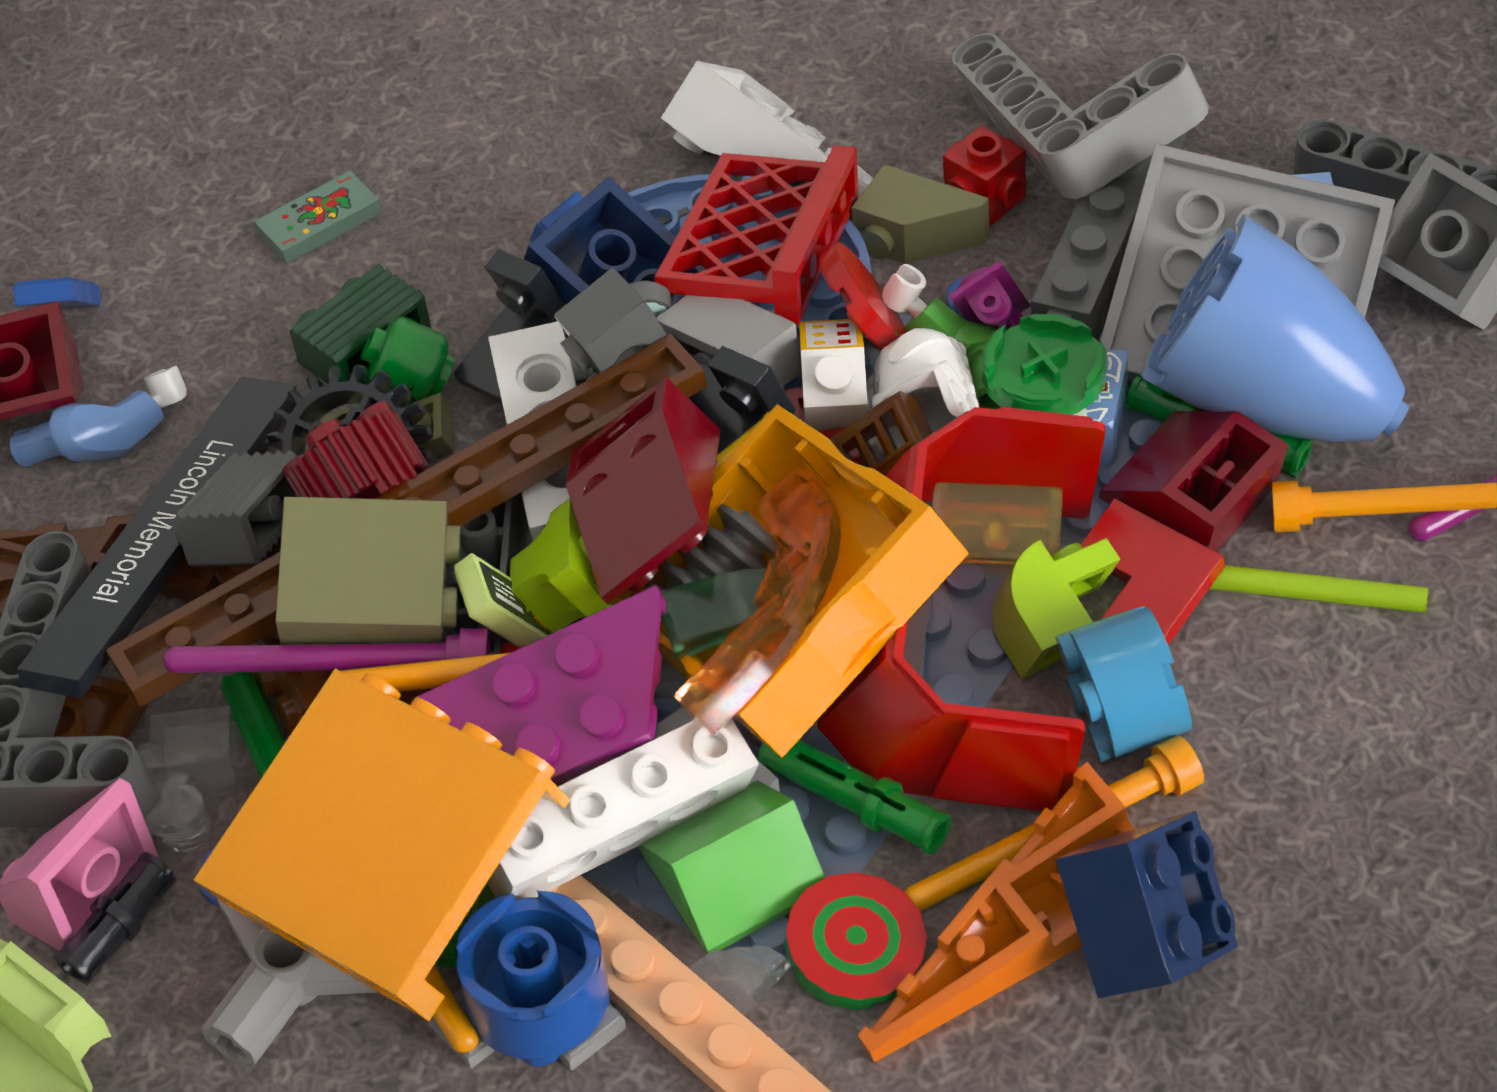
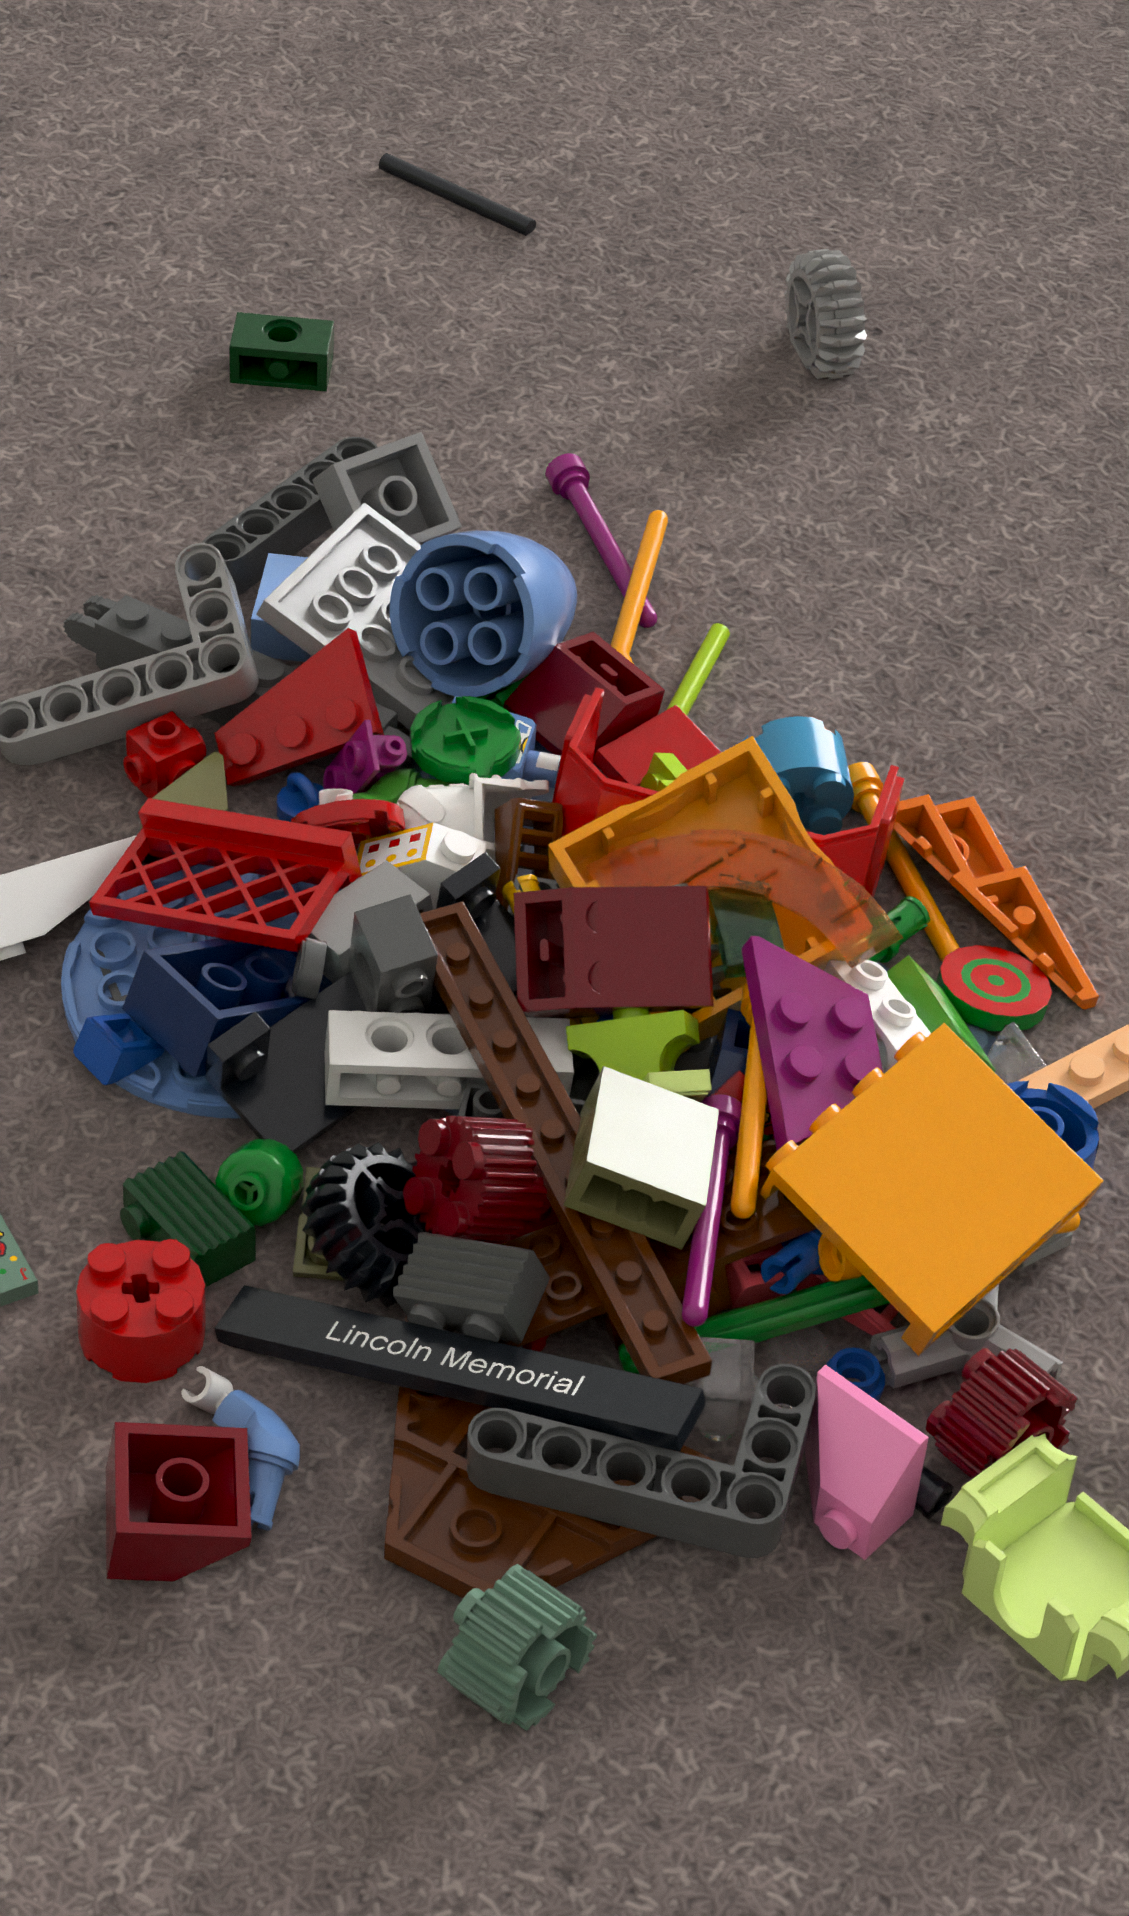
camera: 90 degrees left, 5 degrees down
(67, 291) = (59, 1454): blue tile -> none
(142, 987) = (998, 1409): none -> dark red brick
(237, 314) = (141, 1309): none -> red brick
(1048, 239) = (302, 715): none -> red wing
(1148, 905) = (1020, 802): dark blue slope -> none

